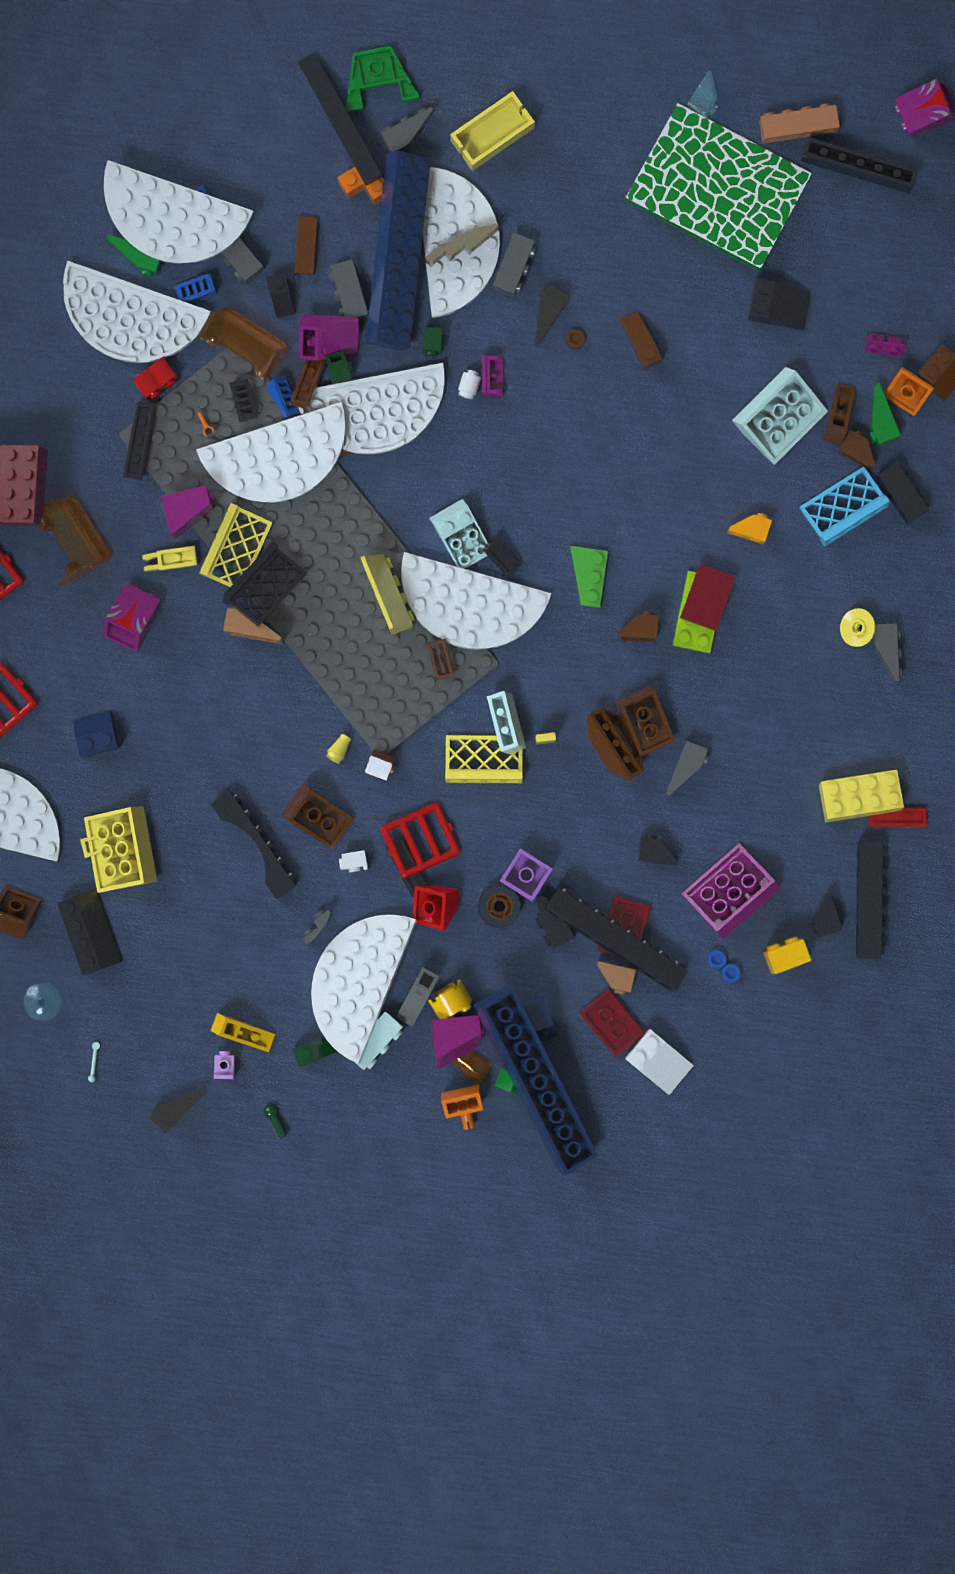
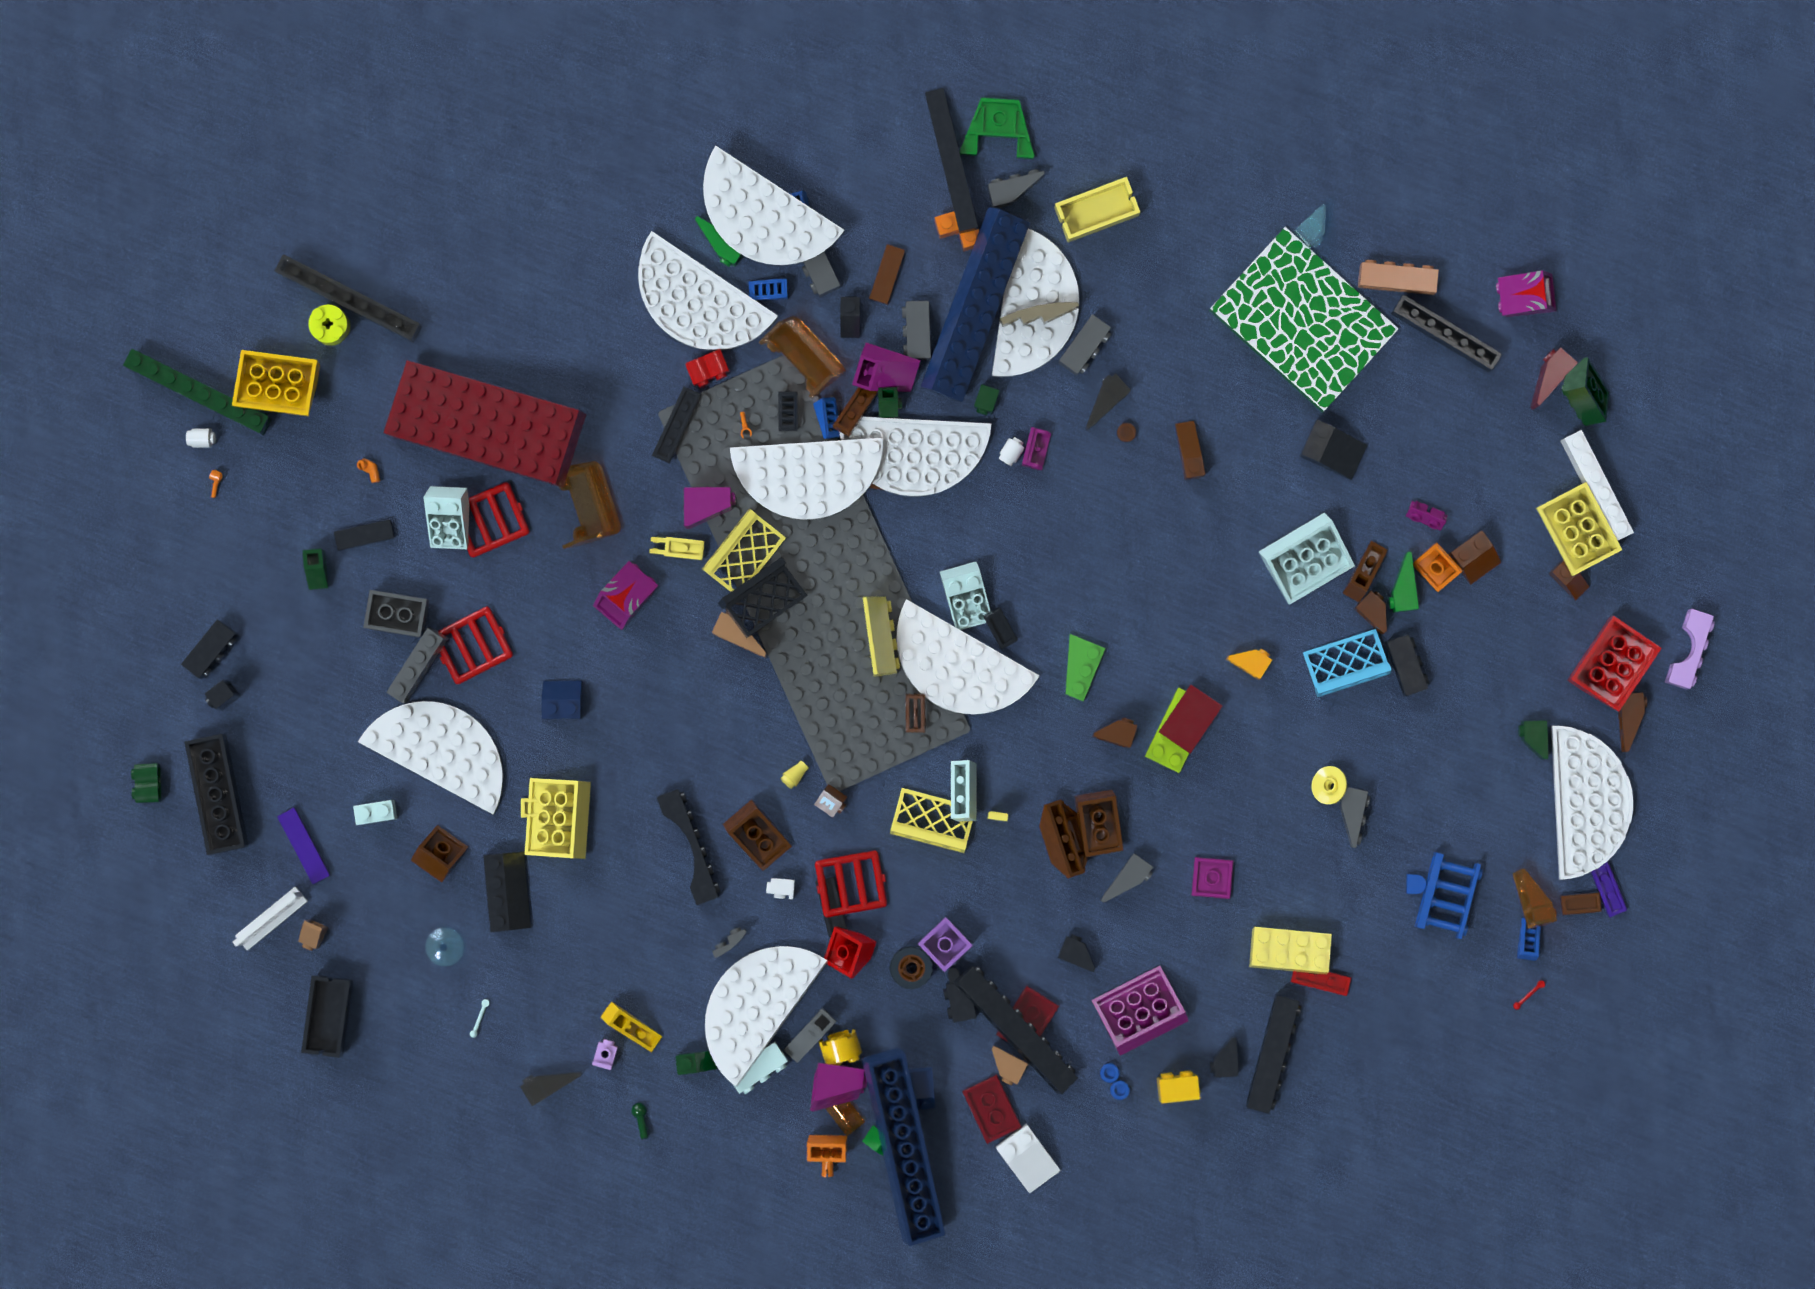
camera: 10 degrees right, 0 degrees up
(767, 746) = (1212, 878): none -> magenta tile

